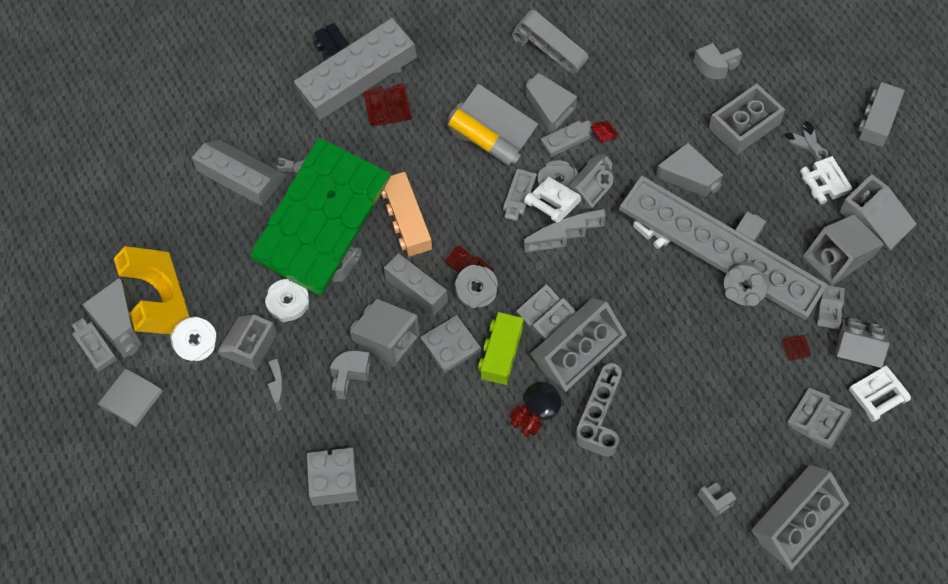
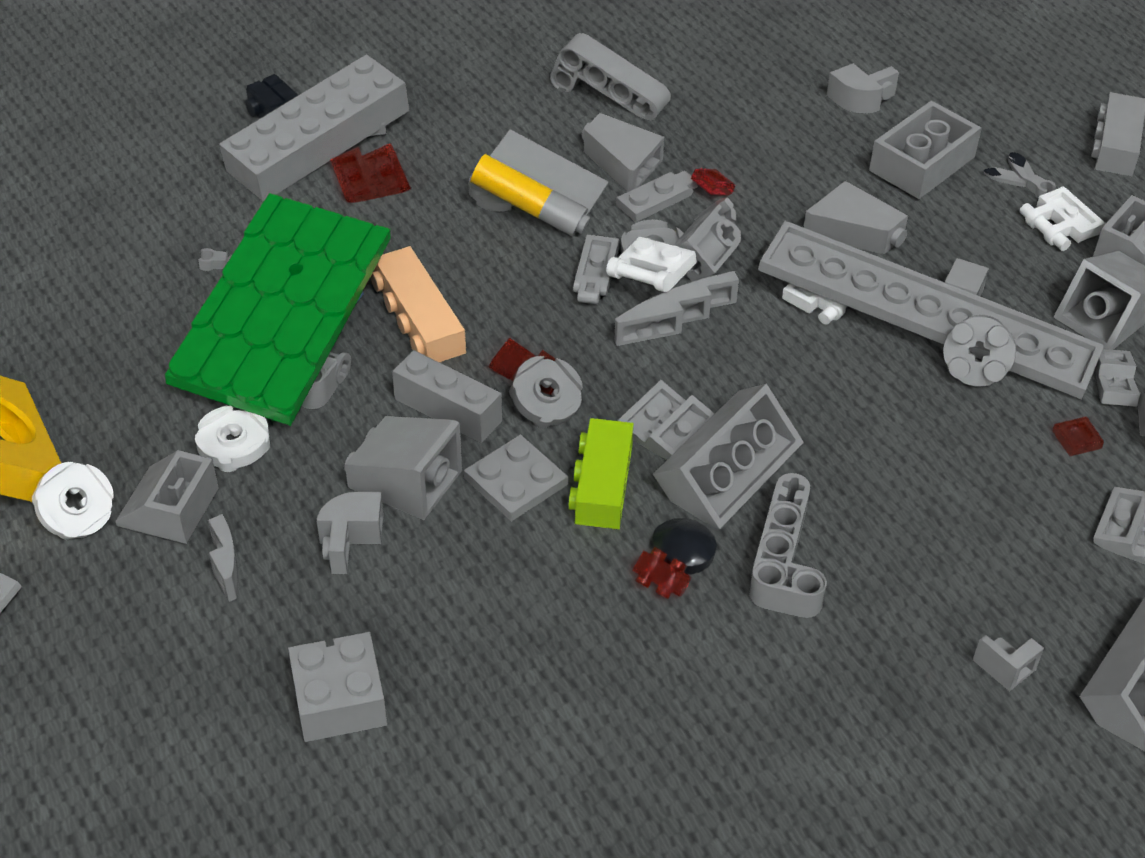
camera: 10 degrees left, 15 degrees down
(237, 171) = (133, 272): light grey slope -> none

